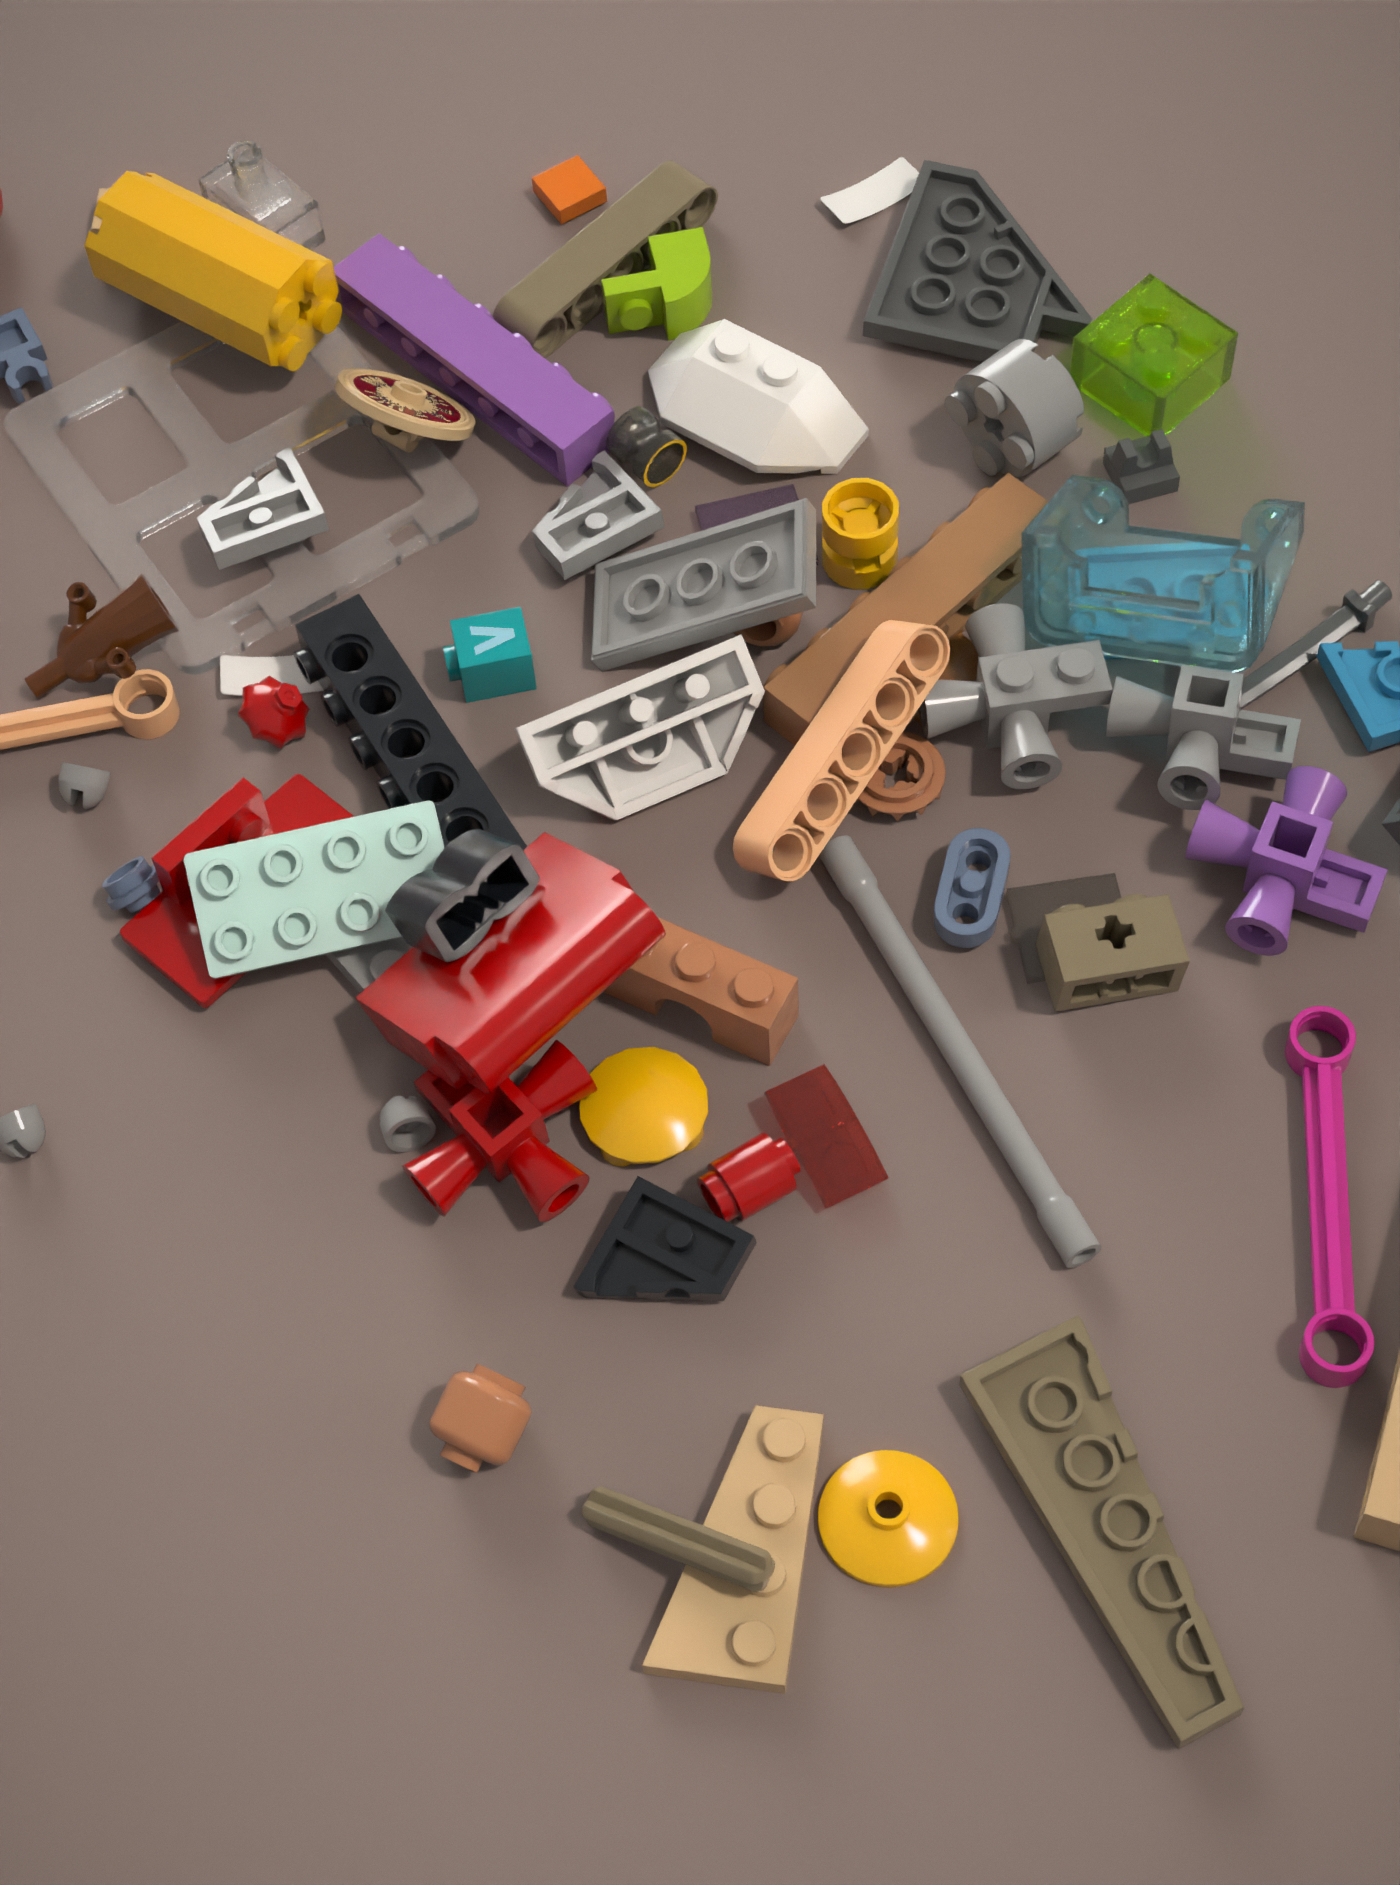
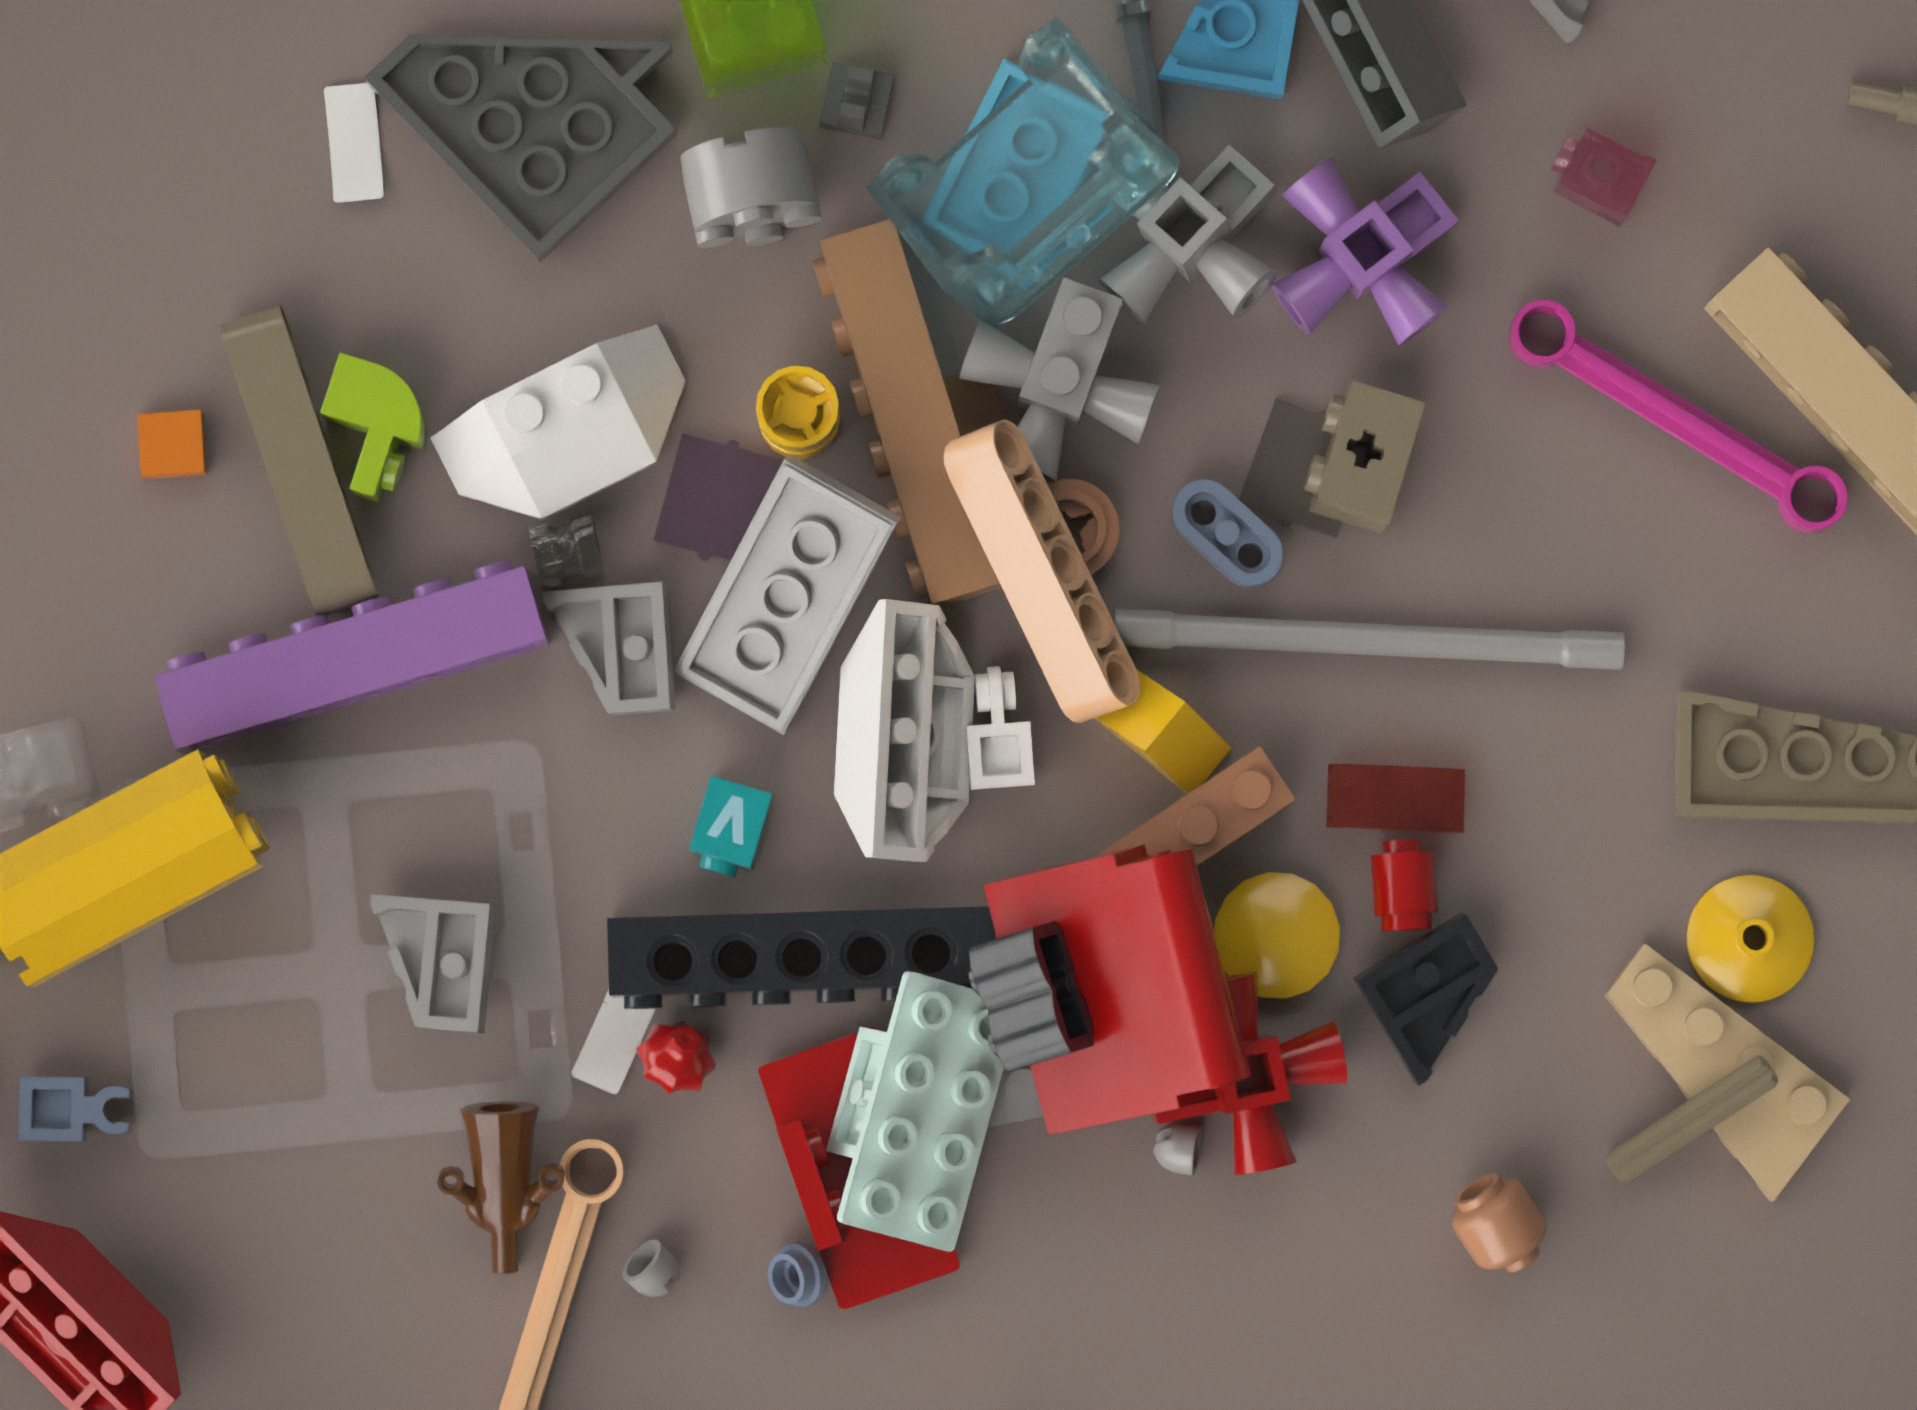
camera: 70 degrees left, 25 degrees up
(404, 405) = (393, 759): tan shield -> none
(677, 814) = (998, 751): none -> white plate
(770, 920) = (1168, 735): none -> yellow slope

